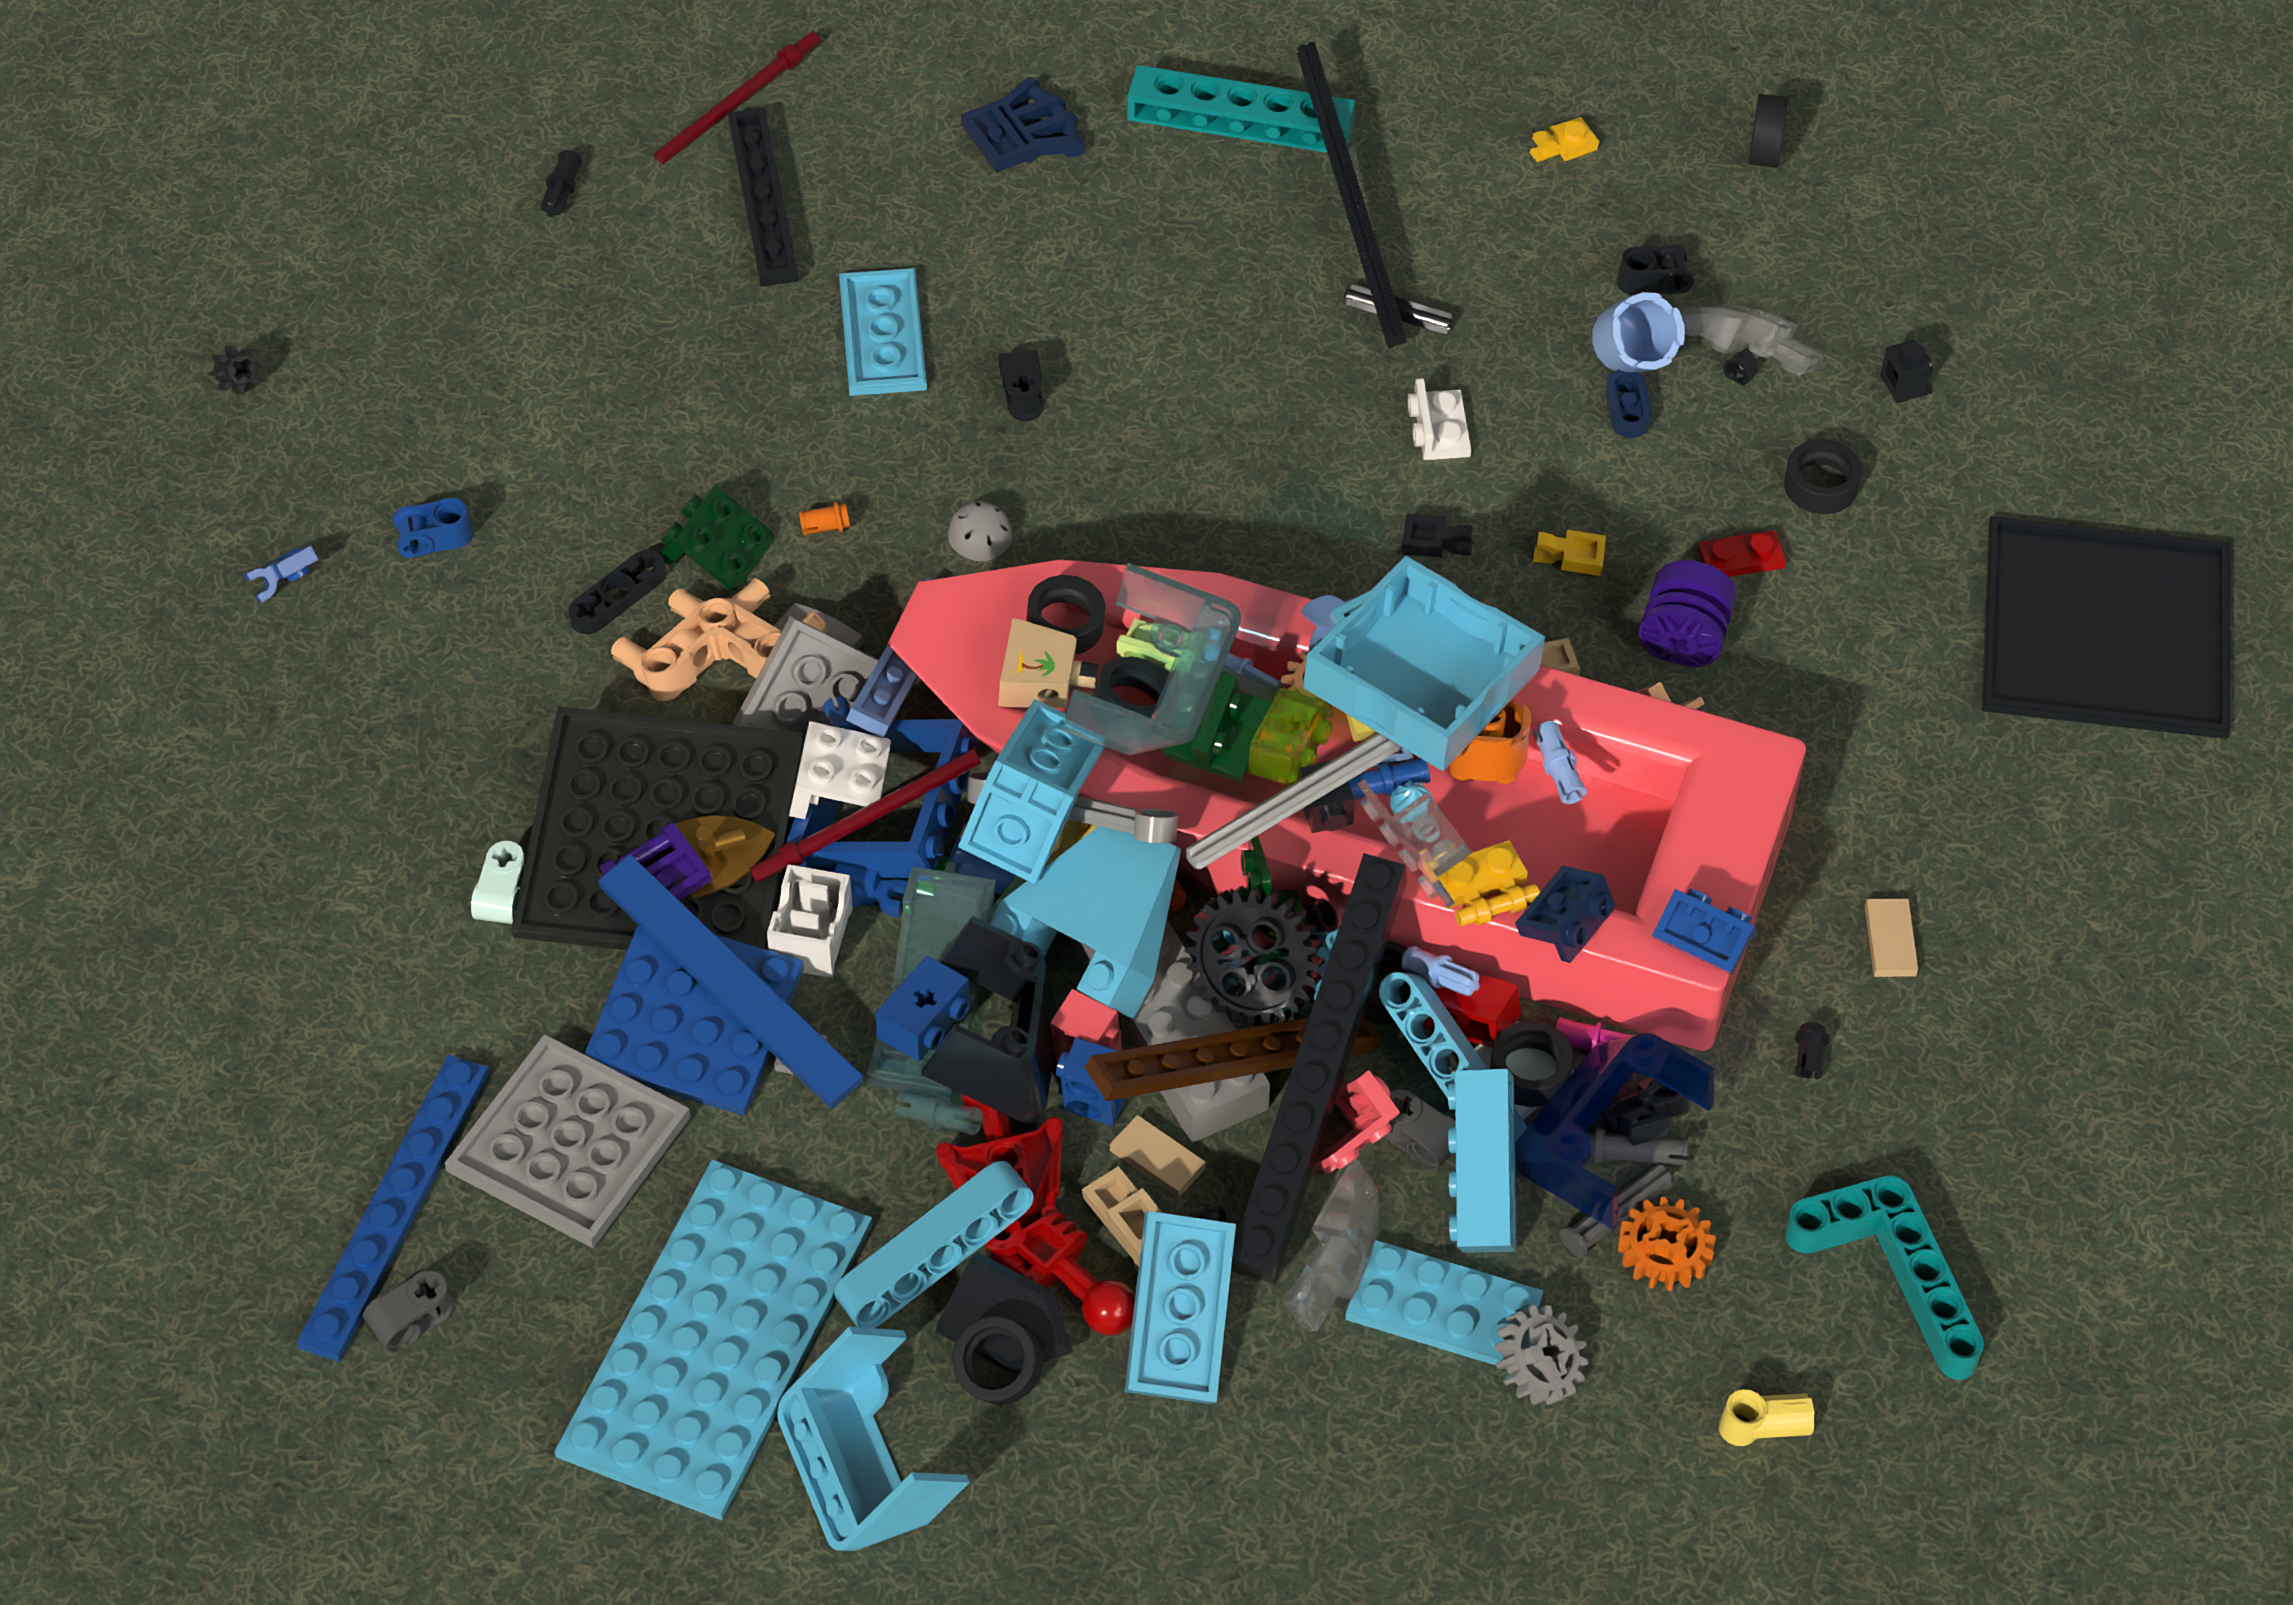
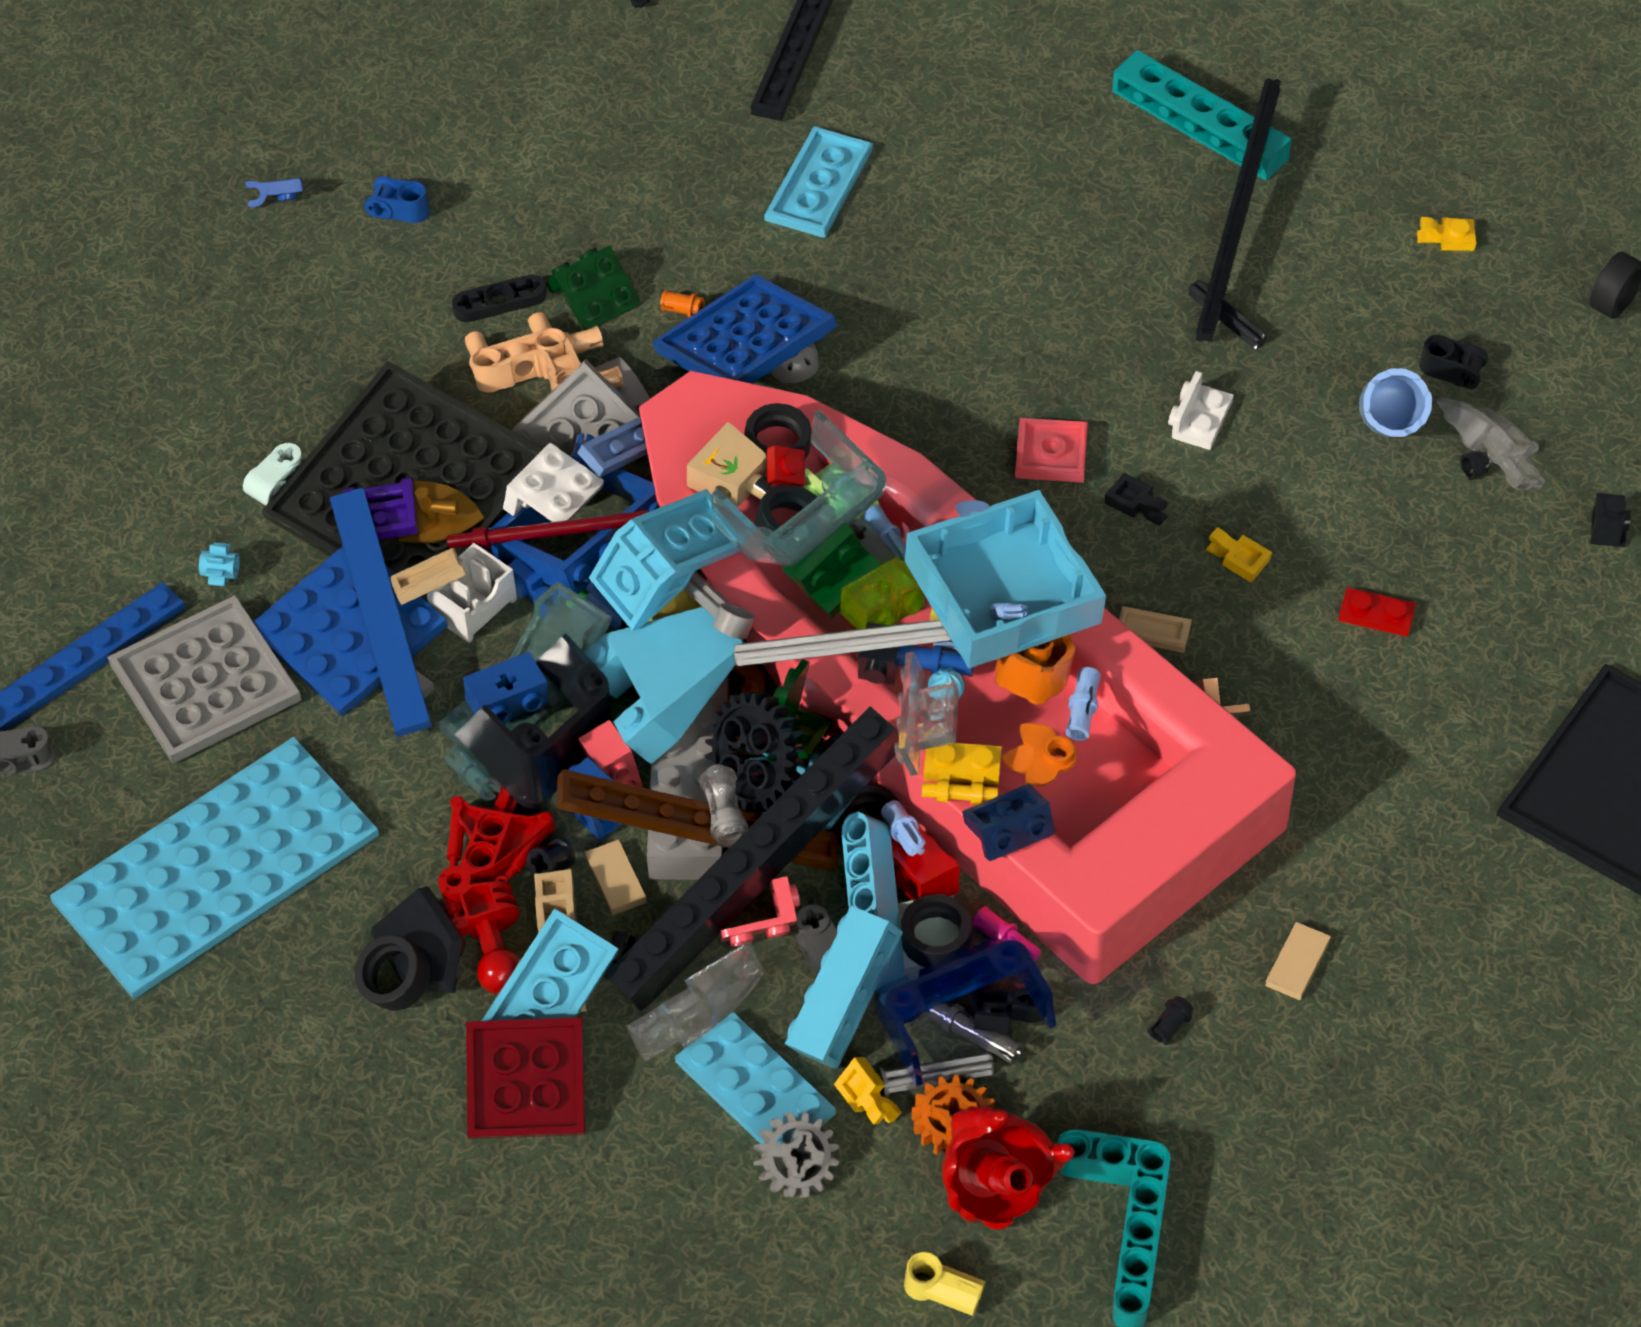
camera: 30 degrees right, 0 degrees up
(225, 372) = (343, 34): black gear -> none
(503, 1008) = (219, 564): none -> medium azure gear
(764, 920) = (427, 576): none -> tan tile
(842, 1452) = (249, 986): medium azure windscreen -> none
(922, 522) = (745, 332): none -> blue plate
(933, 1245) = (398, 866): medium azure beam -> none
(1005, 140) = (1004, 70): dark blue plate -> none
(1022, 383) = (895, 259): black piece -> none
(1088, 1164) = (554, 856): none -> black bush
(1102, 640) = (785, 466): none -> red plate
(1213, 1405) = (525, 1078): none -> dark red plate
(1270, 1038) = (726, 818): none -> clear piece
(1314, 520) = (1051, 450): none -> coral plate
(1454, 693) = (1007, 611): none -> light blue pin
(1546, 832) = (1038, 753): none -> orange plate
(1558, 1258) = (861, 1090): none -> yellow plate
(1630, 405) = (1360, 458): dark blue plate -> none
(1688, 613) = (1292, 637): dark purple wheel -> none
(1705, 931) = (1107, 881): blue bracket -> none
(1756, 1269) = (998, 1165): none -> red piece
(1822, 499) = (1481, 597): black tyre -> none

